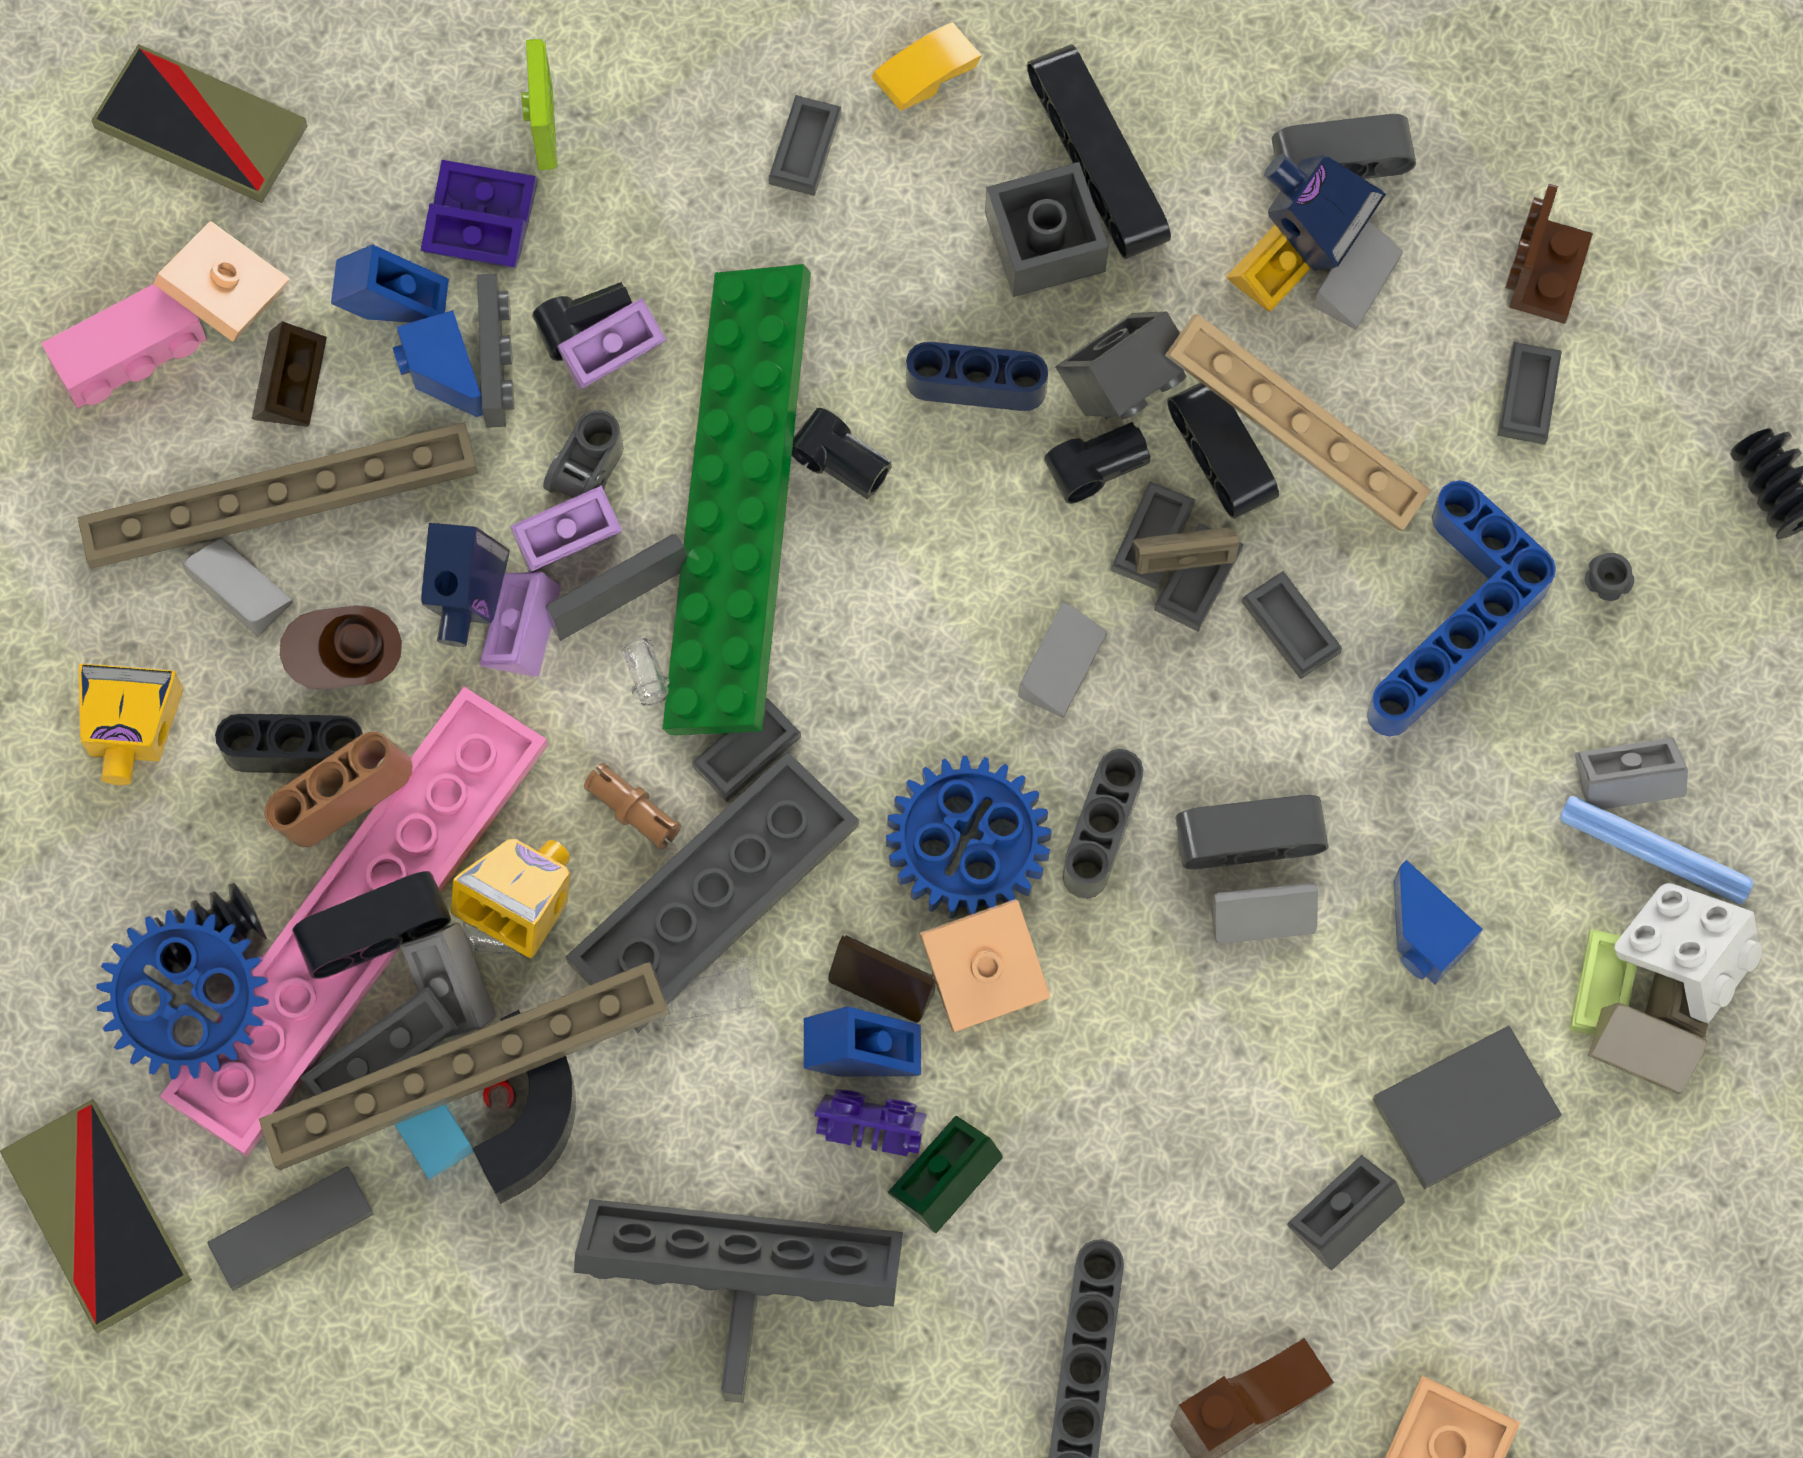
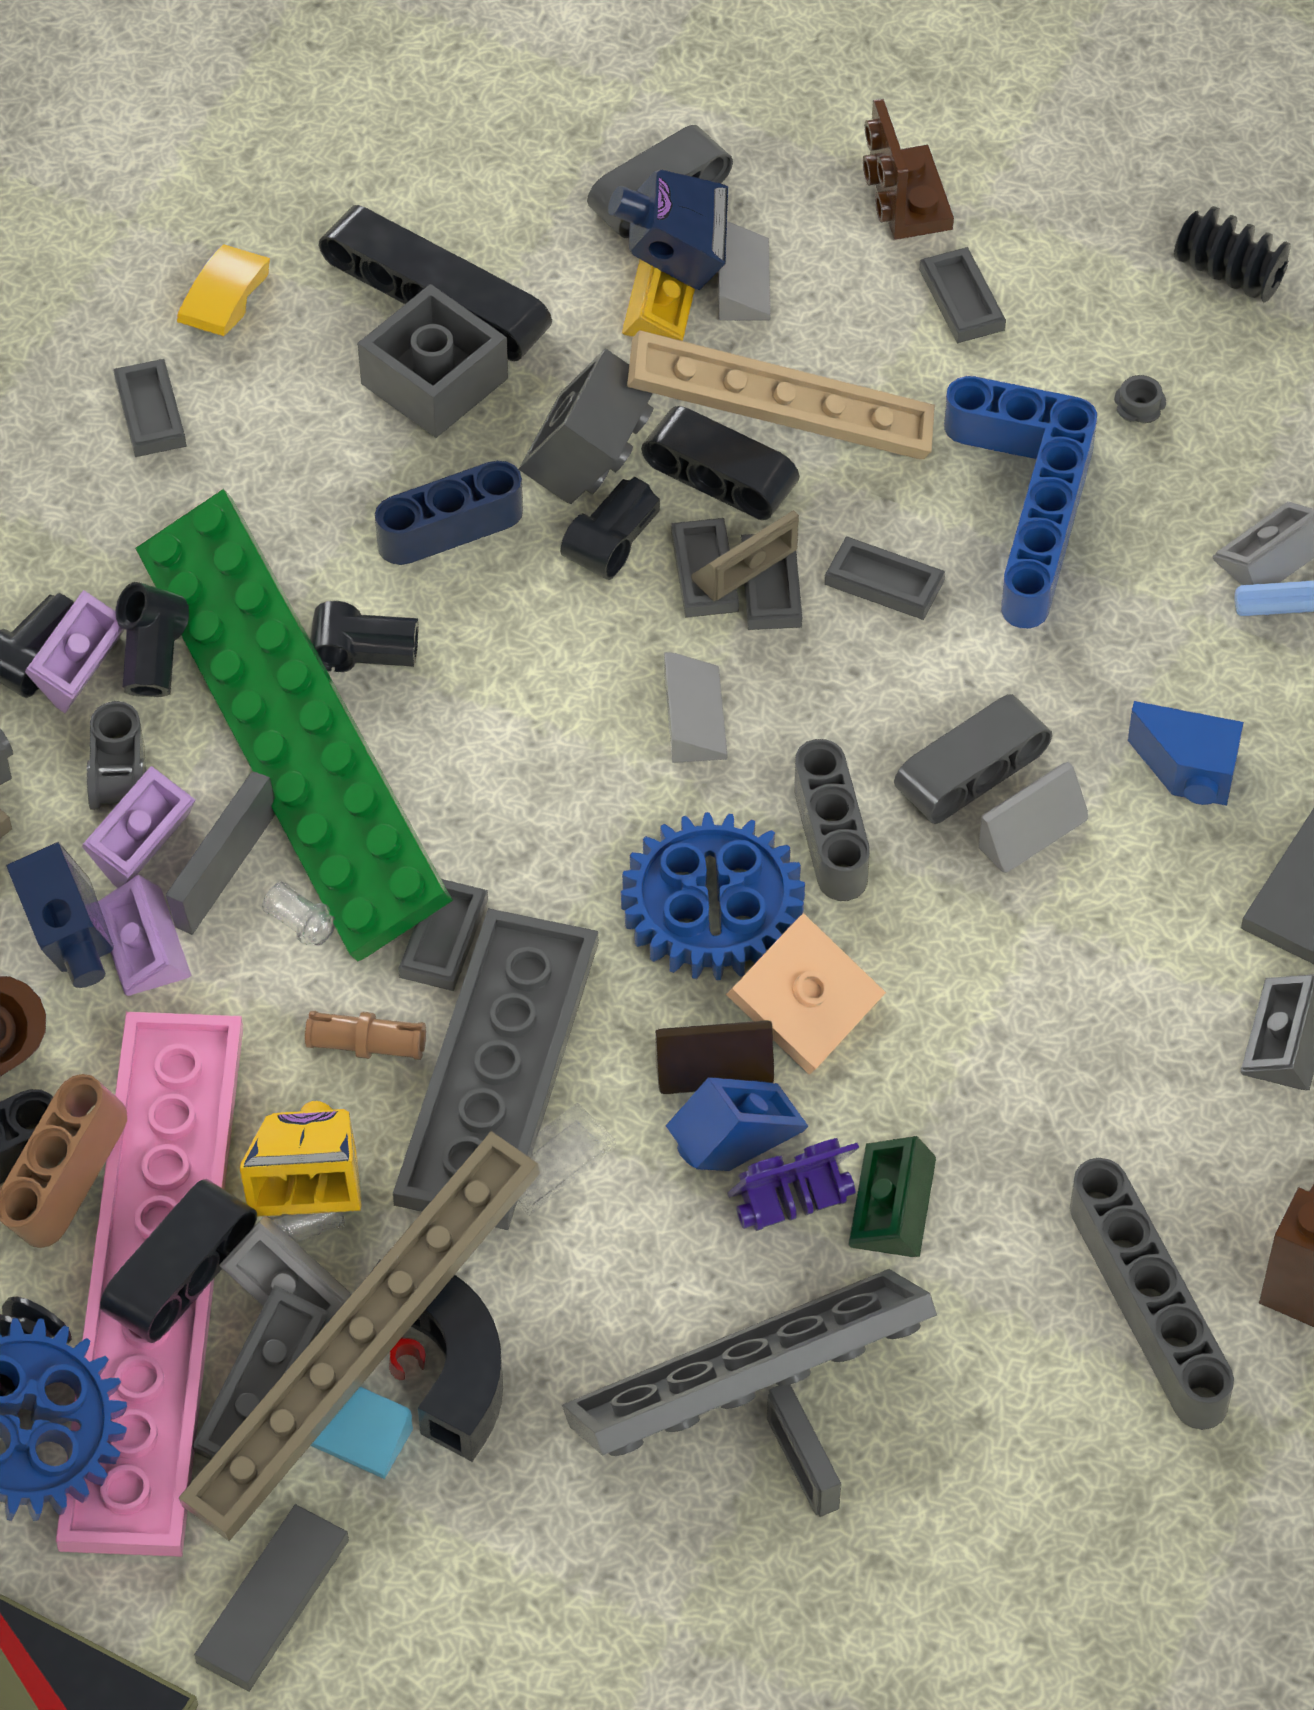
camera: 30 degrees left, 15 degrees down
(679, 354) = (152, 625): none -> black piece

